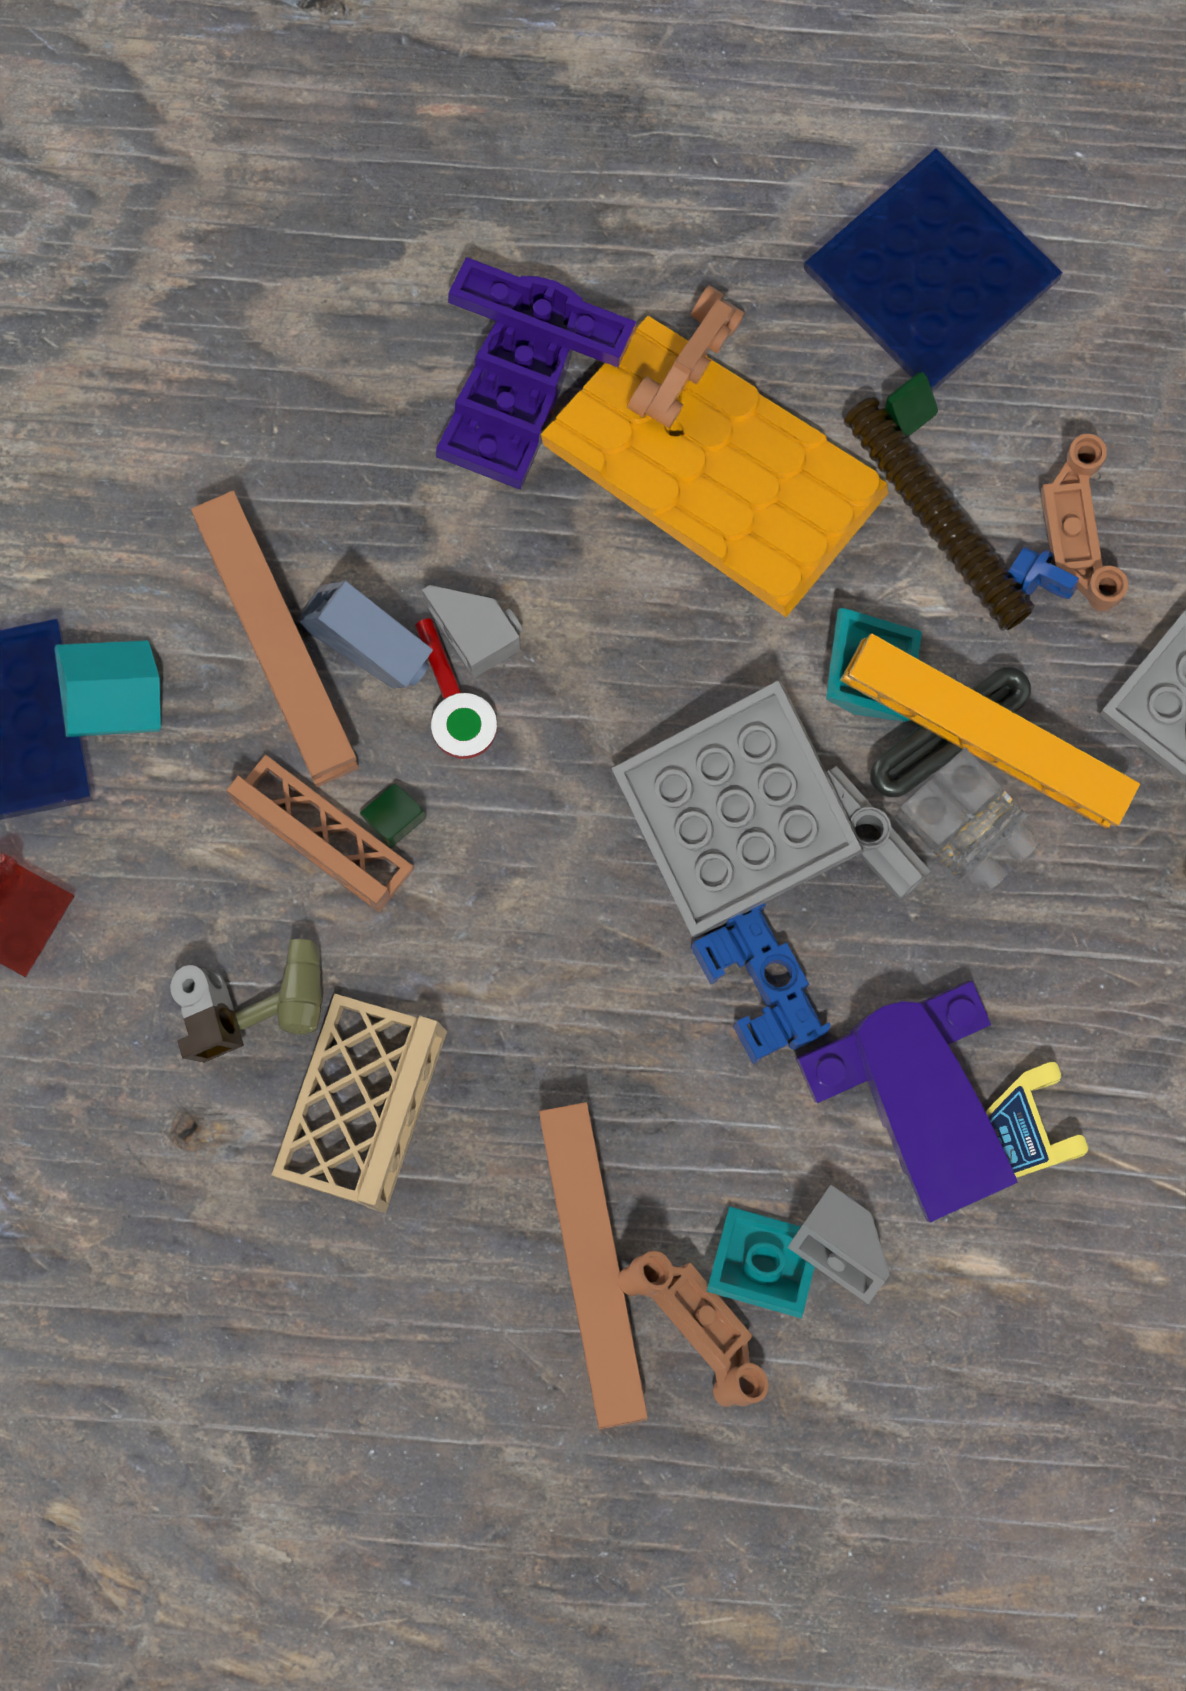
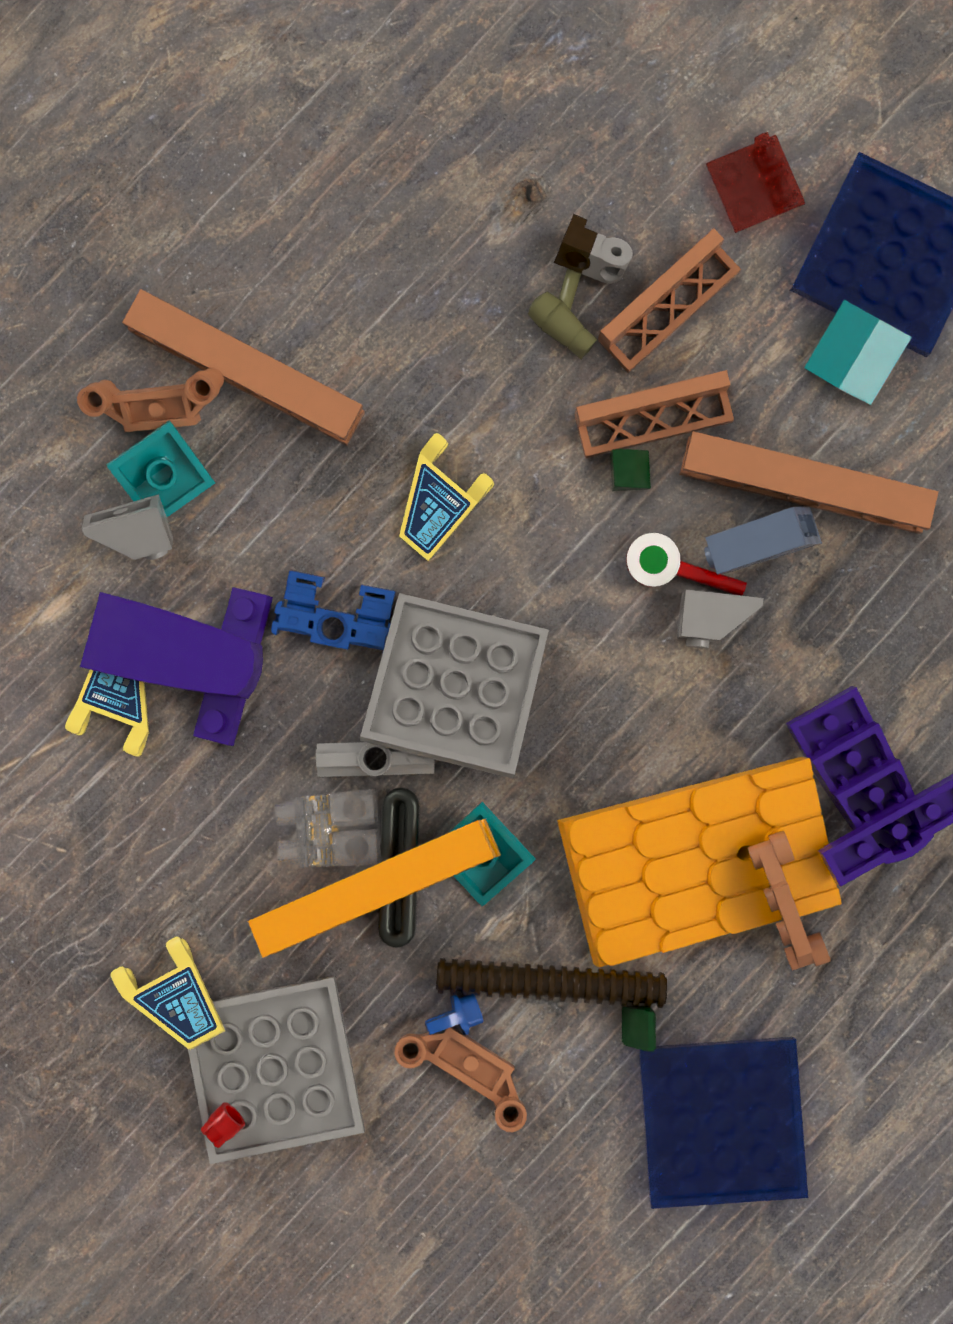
camera: 130 degrees right, 10 degrees up
(188, 917) = (656, 293): none -> nougat fence
(398, 1115) = (430, 316): tan fence -> none
(572, 973) = (436, 502): none -> flag

